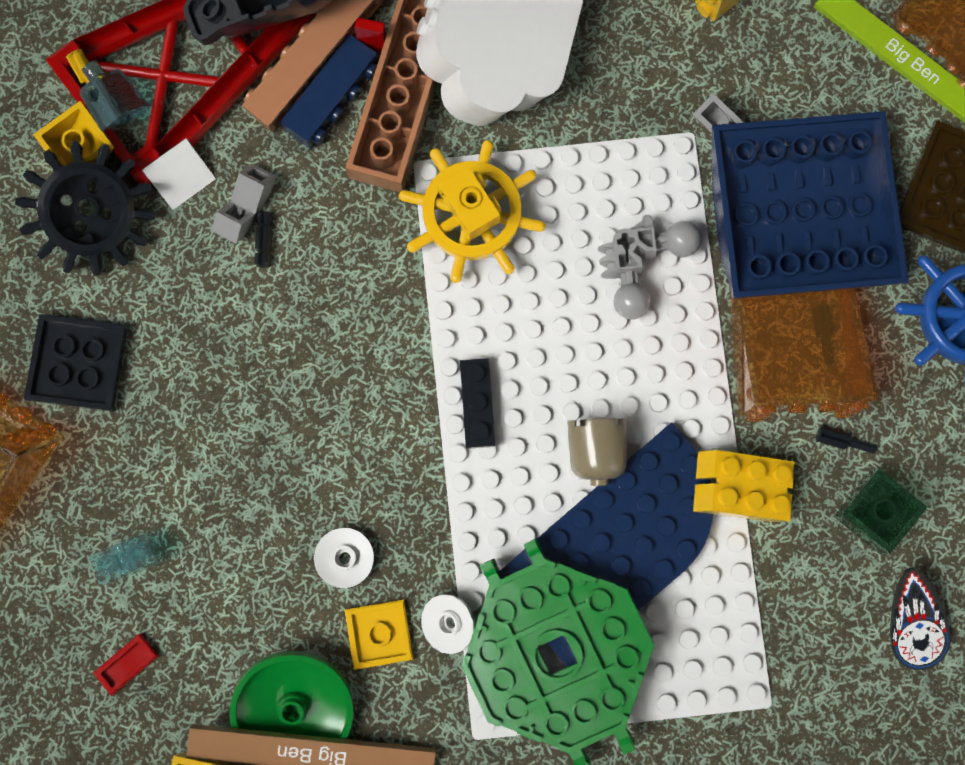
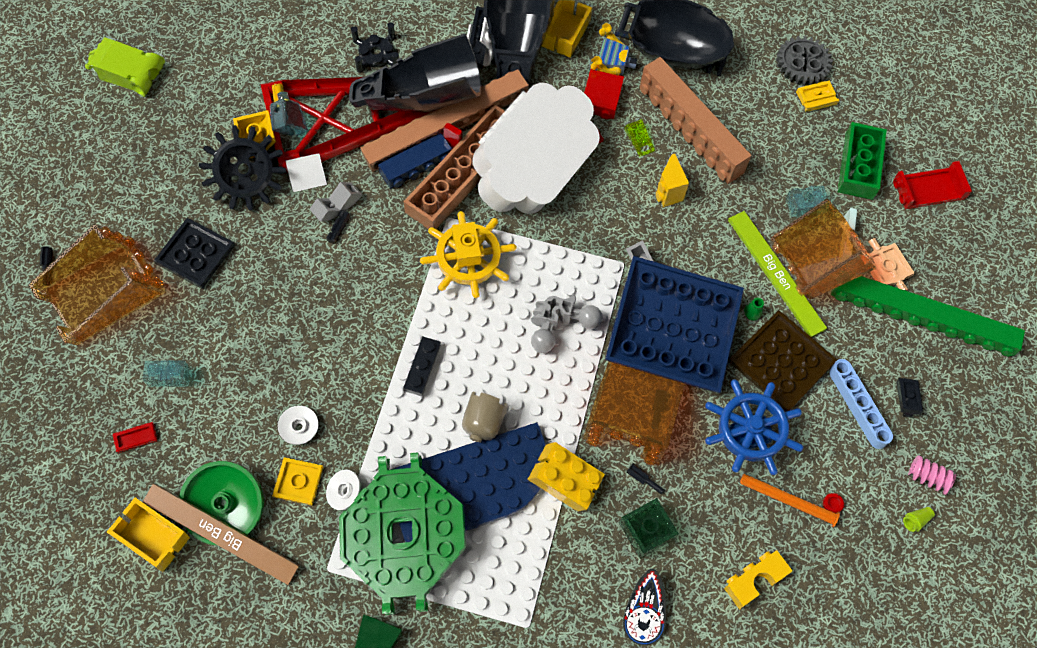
camera: 15 degrees right, 15 degrees down
(903, 133) = (754, 309): none -> green cone

